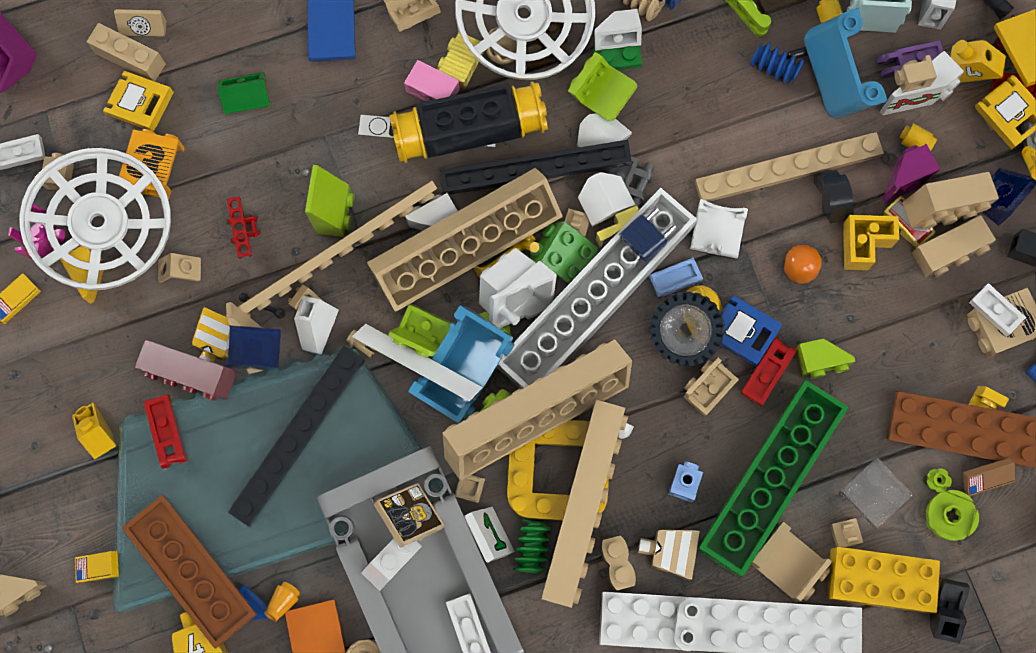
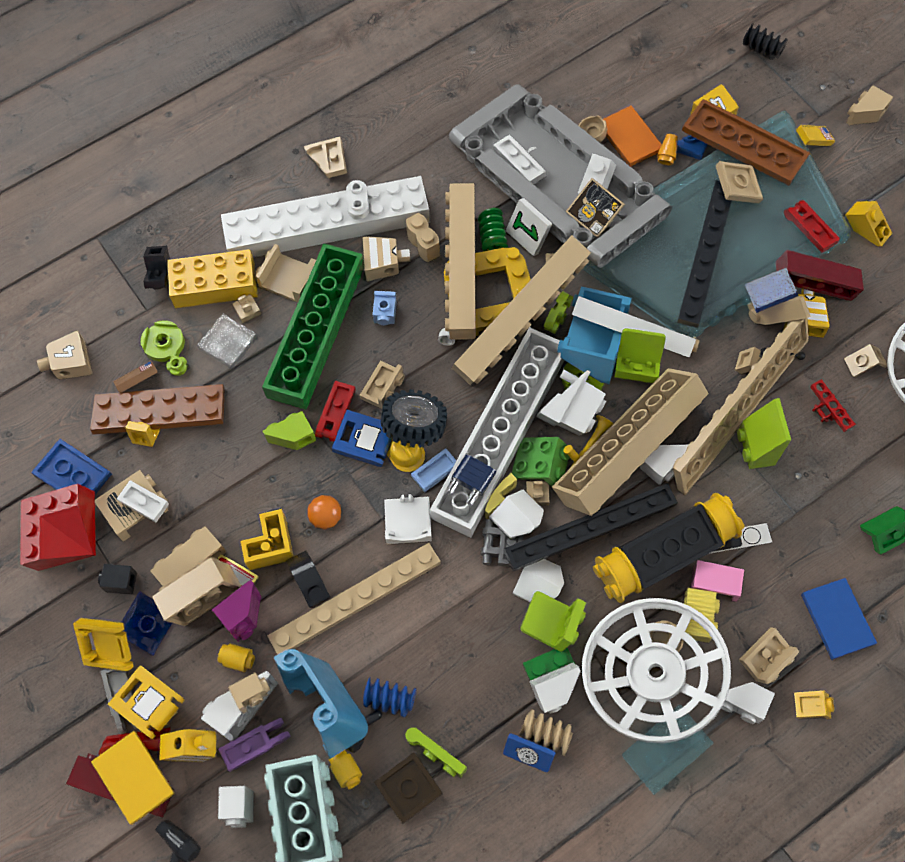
camera: 165 degrees right, 10 degrees down
(223, 511) = (739, 182): none -> tan tile
(314, 323) = (731, 345): white slope -> none

